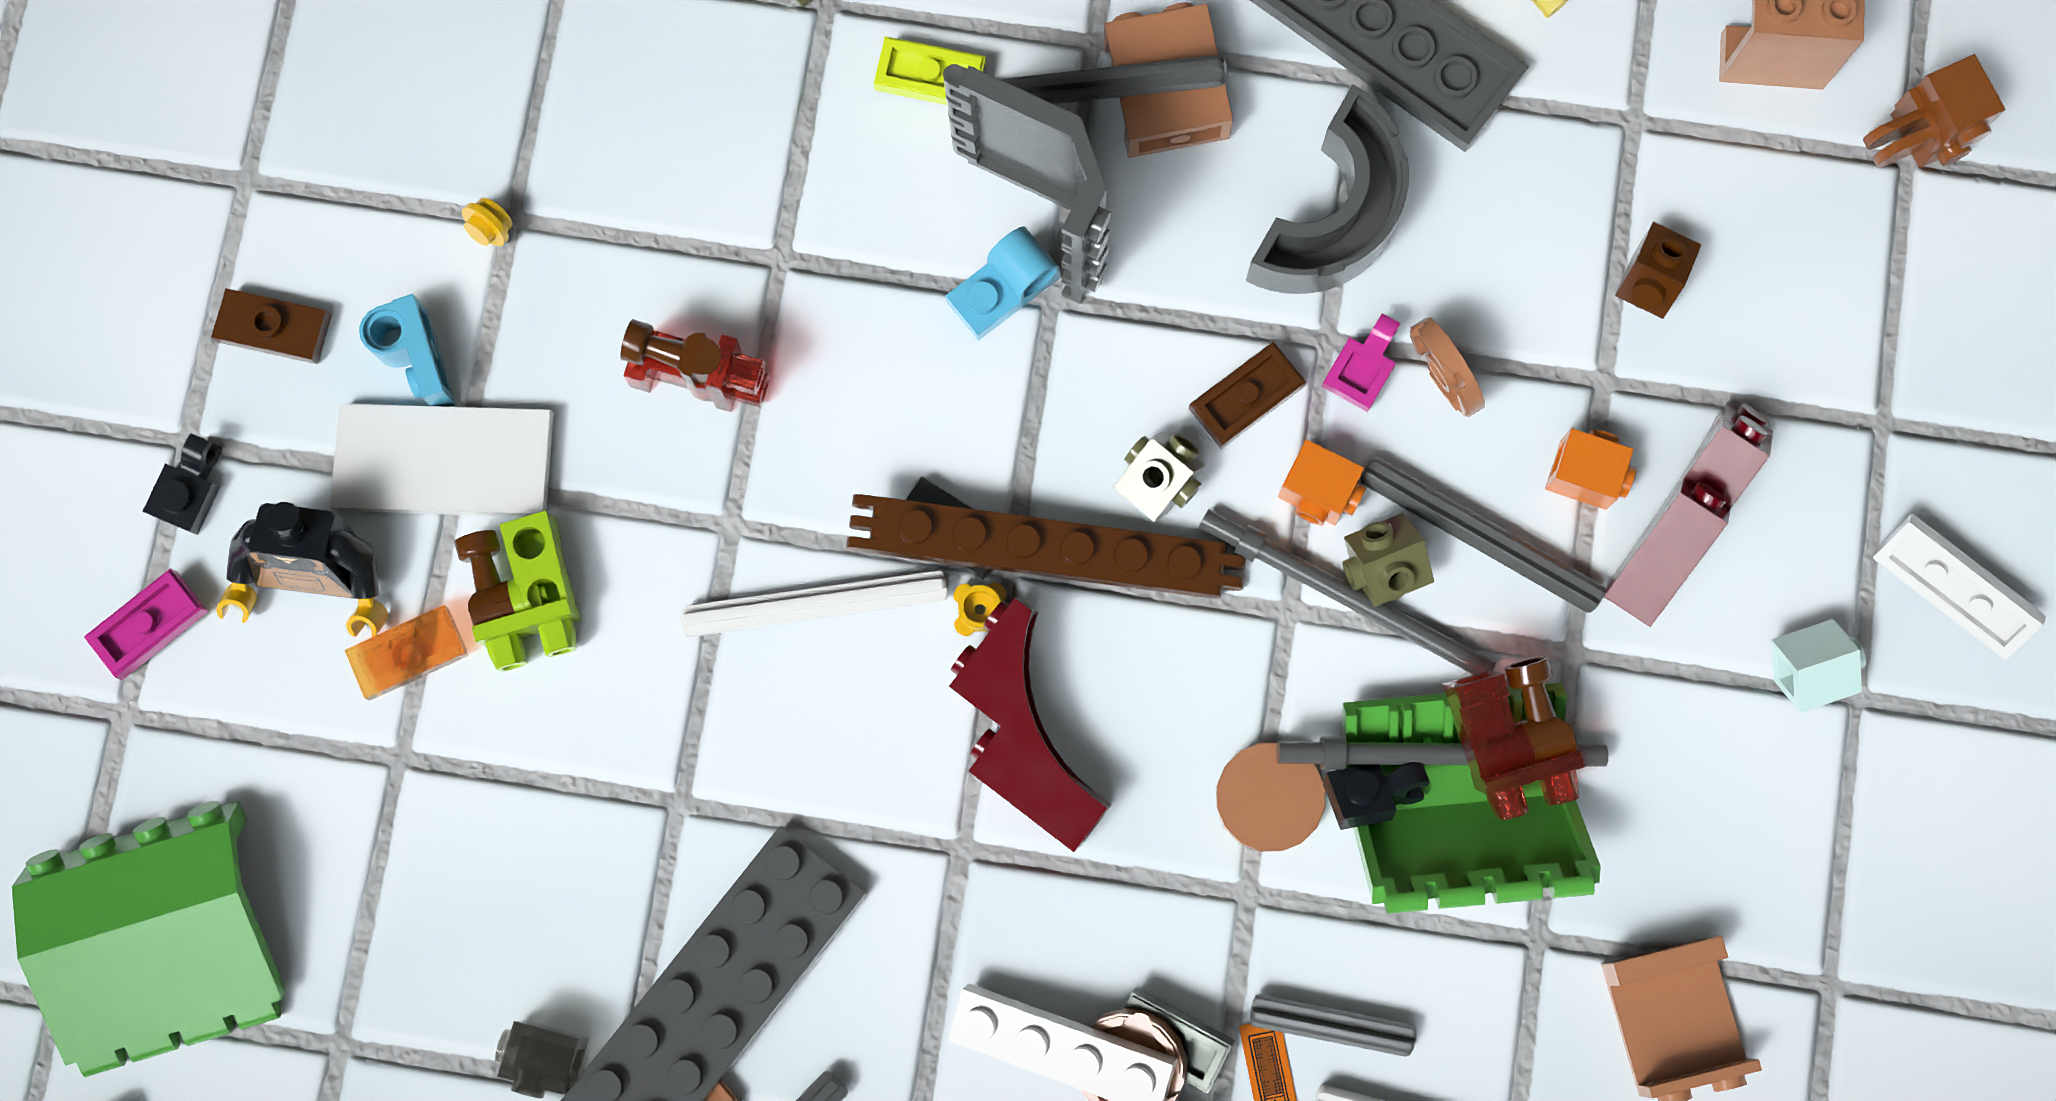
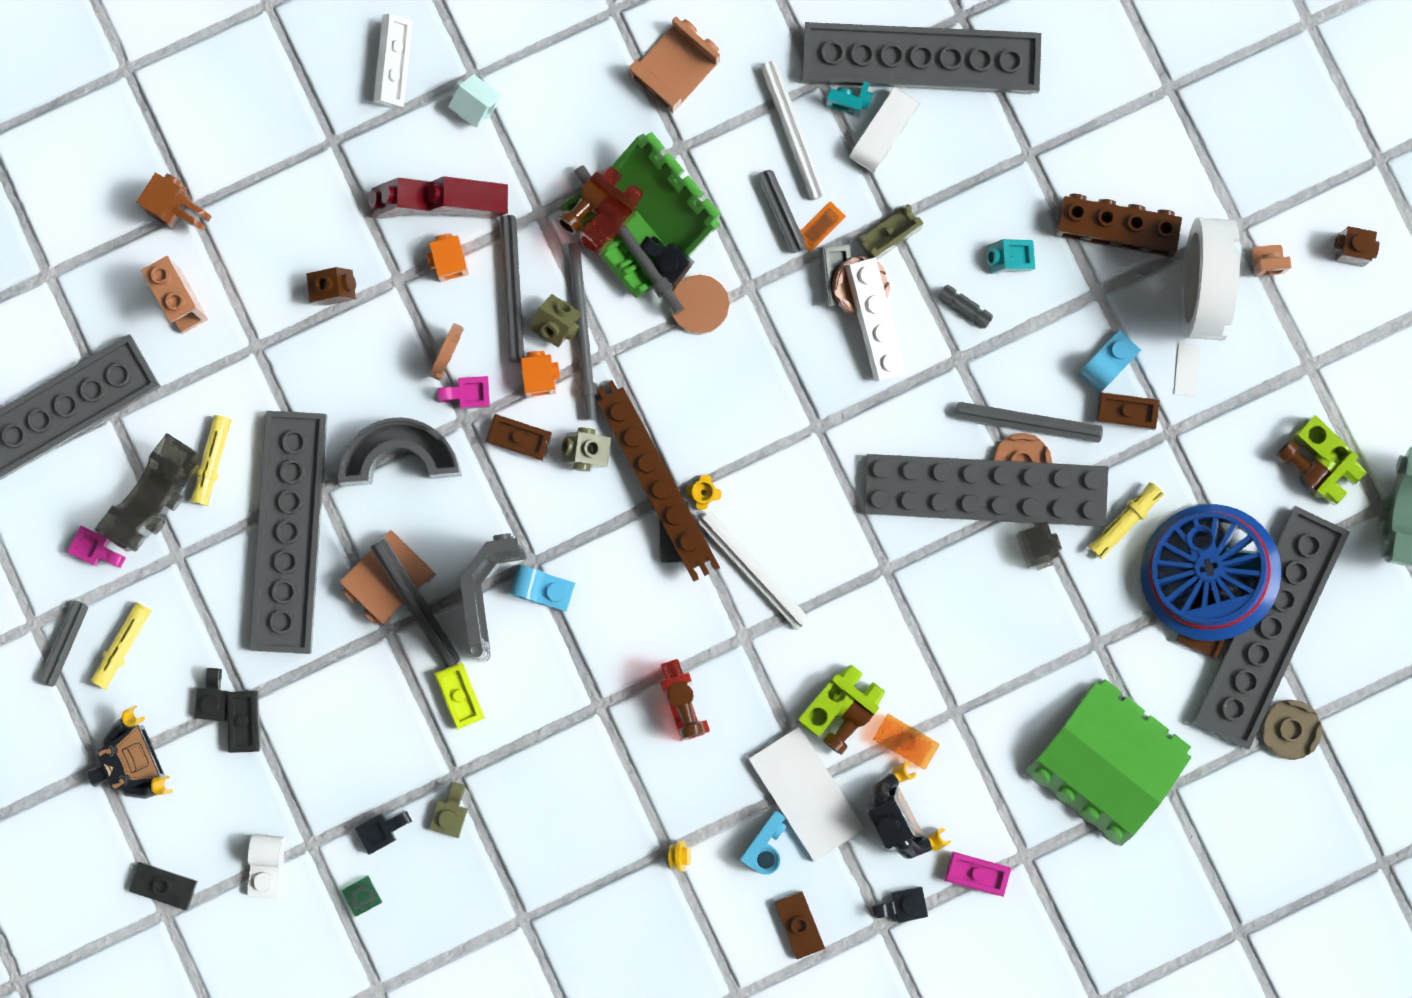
camera: 130 degrees left, 5 degrees up
(1020, 757) = (760, 426): dark red arch -> none

